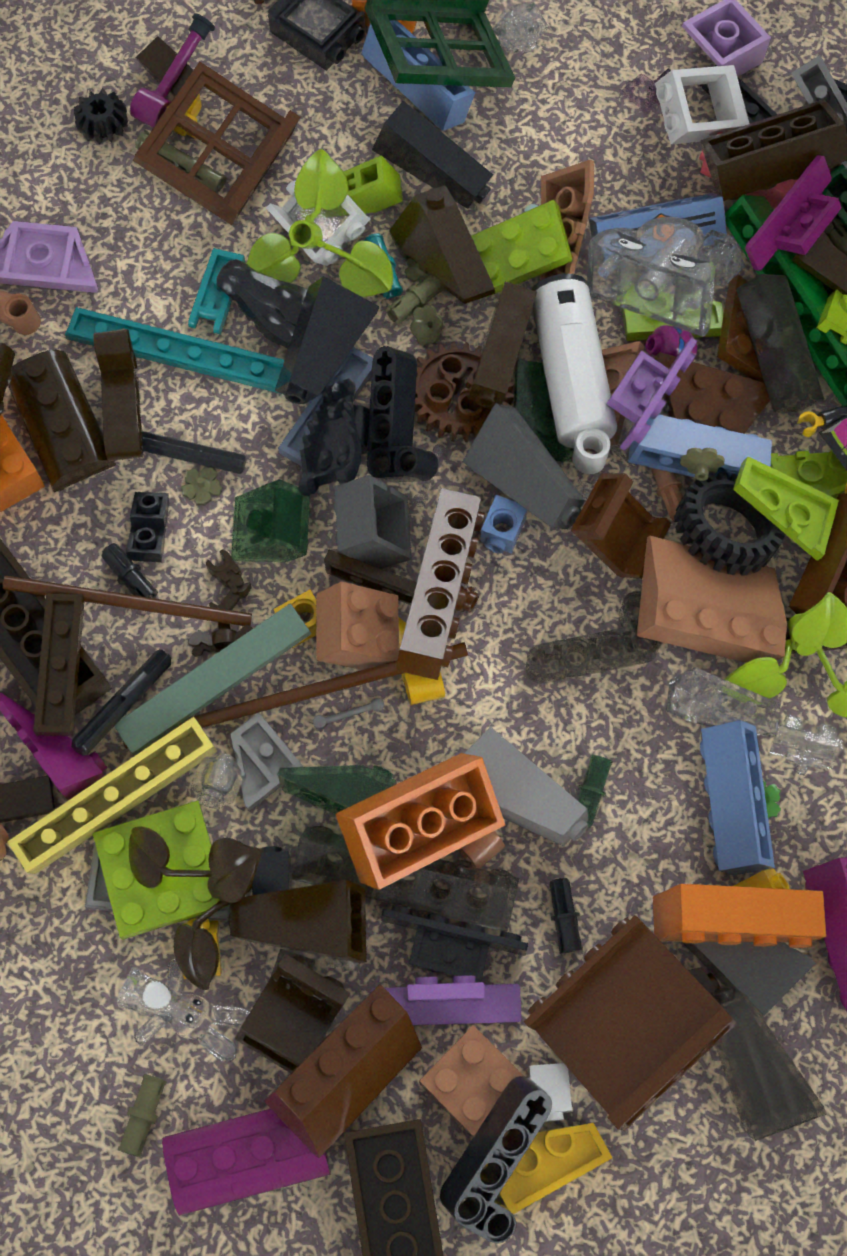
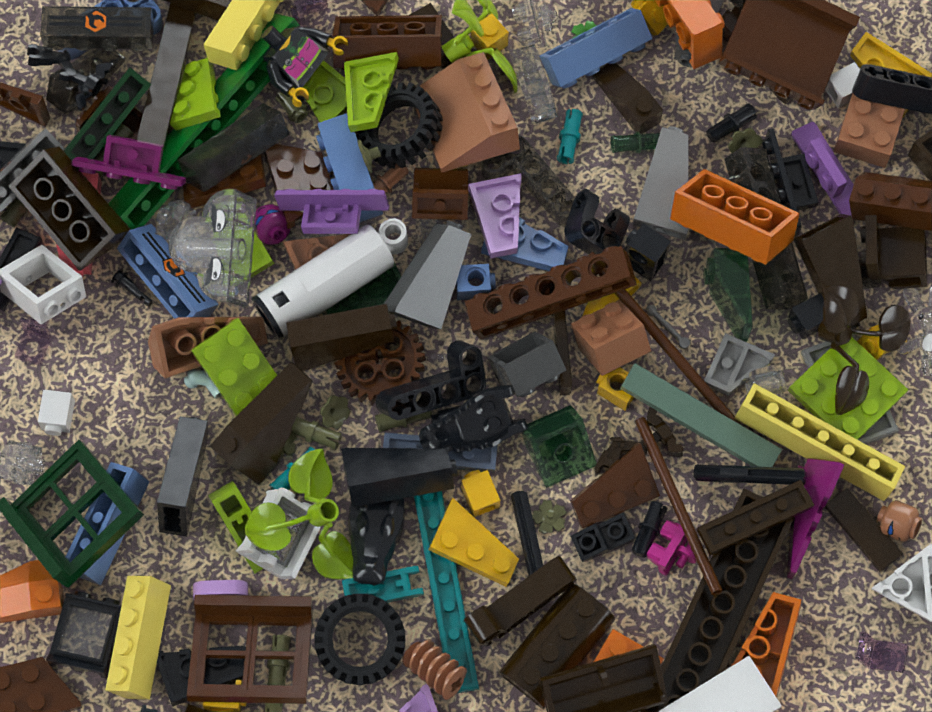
camera: 120 degrees left, 0 degrees up
(88, 574) = (666, 557): none -> dark pink hips
(101, 293) = (435, 668): none -> nougat piece
(160, 216) = (324, 642): none -> black tyre
(188, 562) = (617, 490): none -> reddish brown wing
(211, 389) = (471, 545): none -> yellow wing
(217, 109) = (176, 665): none -> black wing
(261, 423) = (480, 492): none -> yellow brick
(288, 58) = (138, 637): none -> light yellow brick
(295, 148) = (220, 587): none -> lavender beam
(441, 717) = (647, 251): none -> black brick
(486, 665) = (588, 232): none -> black piece
(526, 600) = (536, 249): none -> medium blue wing
(530, 917) = (744, 138): none -> olive plant
(559, 79) = (56, 412): none -> white brick
(571, 582) = (497, 212): none -> lavender wing
(635, 716) = (569, 136): none -> teal pin
(655, 808) = (629, 97): none -> dark brown slope
(678, 193) = (128, 284): none -> black piece
(799, 441) = (296, 114): none -> olive pin
(807, 682) = (494, 35): none -> yellow brick

